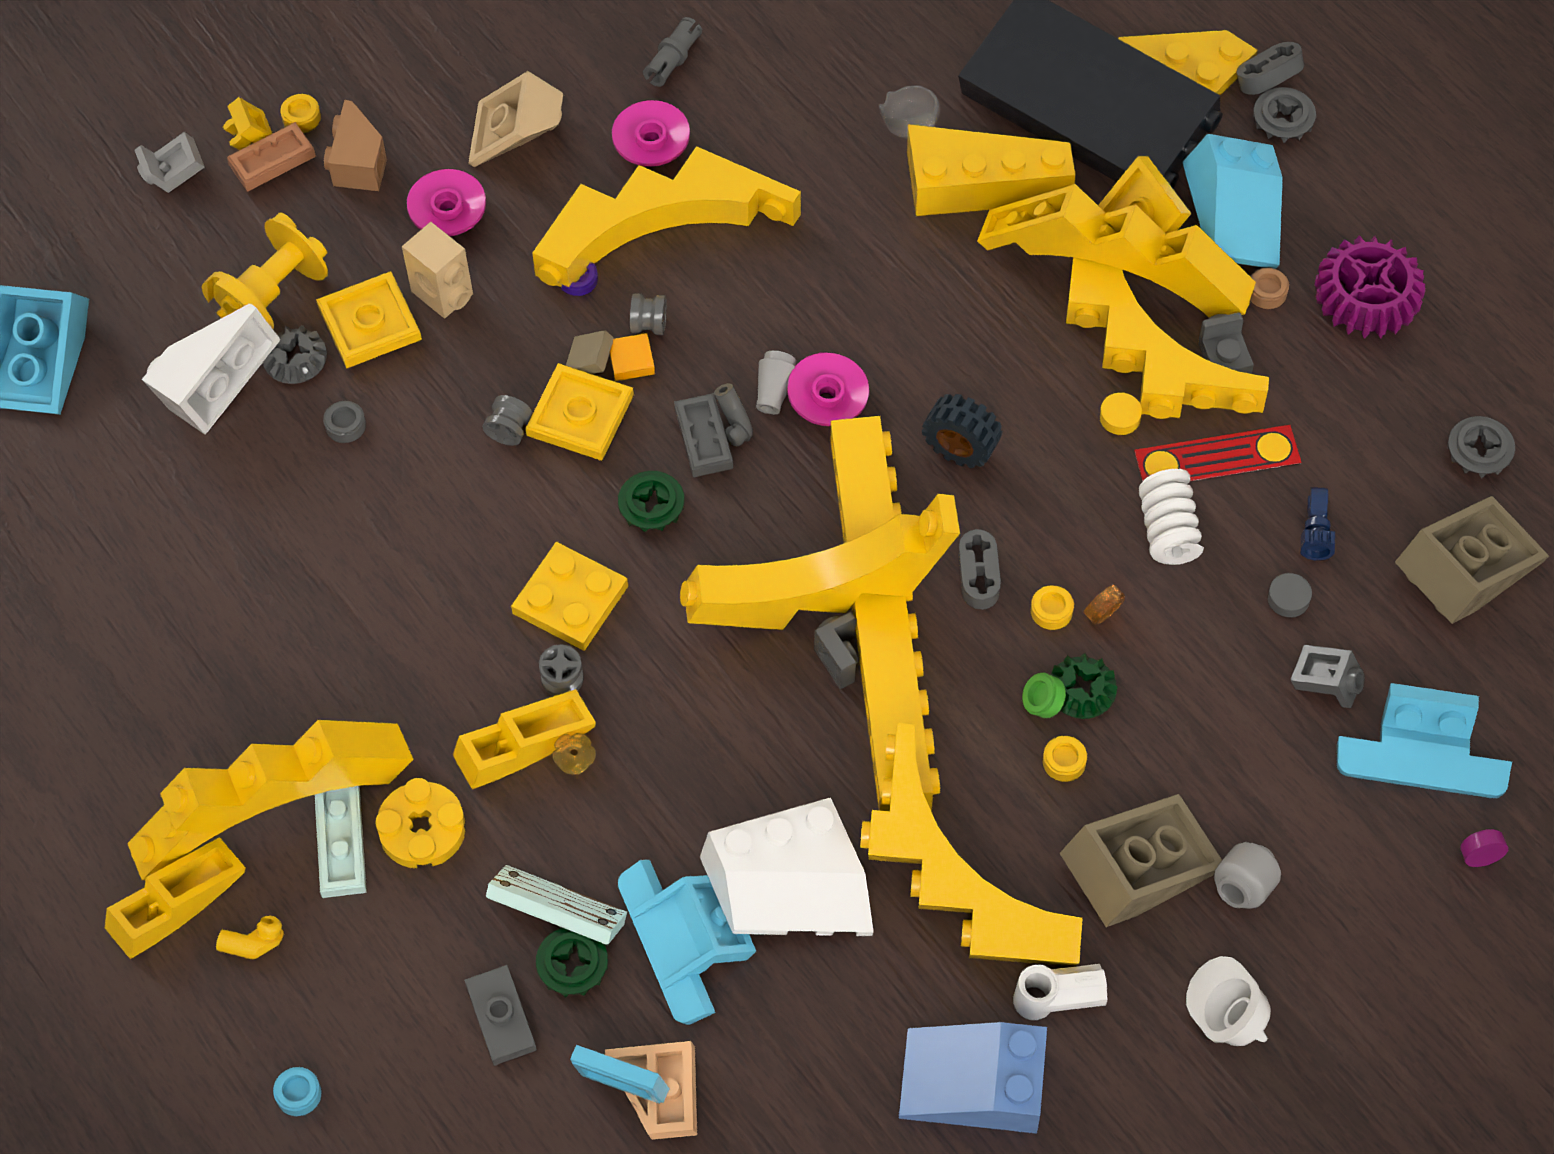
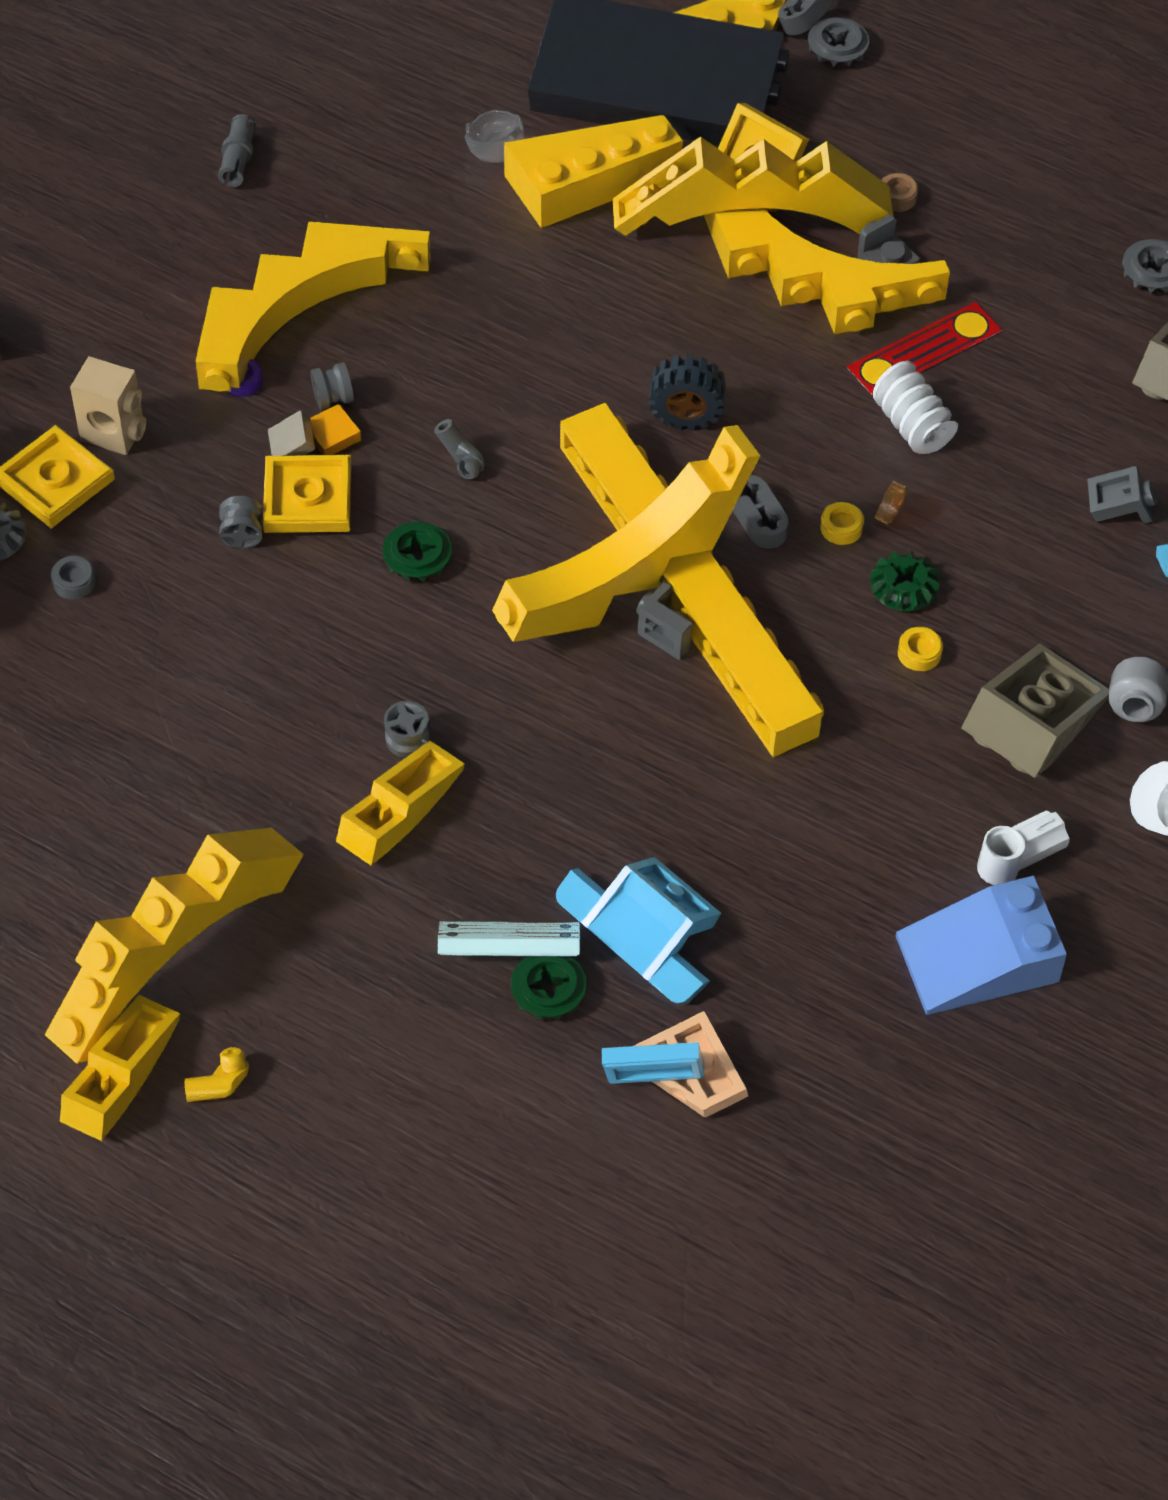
camera: 25 degrees left, 5 degrees down
(297, 1091) = (334, 1202): medium azure tile -> none
(340, 842) = (262, 959): light aqua tile -> none
(424, 847) = (335, 890): yellow plate -> none
(443, 191) = (74, 338): dark pink dish -> none
(500, 1015) = (502, 1059): dark grey plate -> none
(514, 117) = (109, 250): tan slope -> none
(570, 596) = (378, 661): yellow plate -> none
(573, 763) = (465, 805): clear yellow plate -> none
(650, 122) = (253, 226): dark pink dish -> none
(703, 435) = (438, 476): dark grey plate -> none
(773, 380) = (483, 404): light grey cone -> none
(789, 874) = (723, 830): white wedge -> none
(831, 375) = (539, 397): dark pink dish -> none
(999, 924) = (822, 751): yellow arch -> none
(1043, 695) = (876, 598): bright green tile -> none
(1120, 413) = (820, 338): yellow tile -> none
(1238, 197) = (836, 108): medium azure slope -> none
(1289, 595) = (1050, 443): dark grey tile -> none
(1317, 539) = (1052, 387): dark blue piece -> none
(1373, 300) = (990, 161): magenta gear -> none

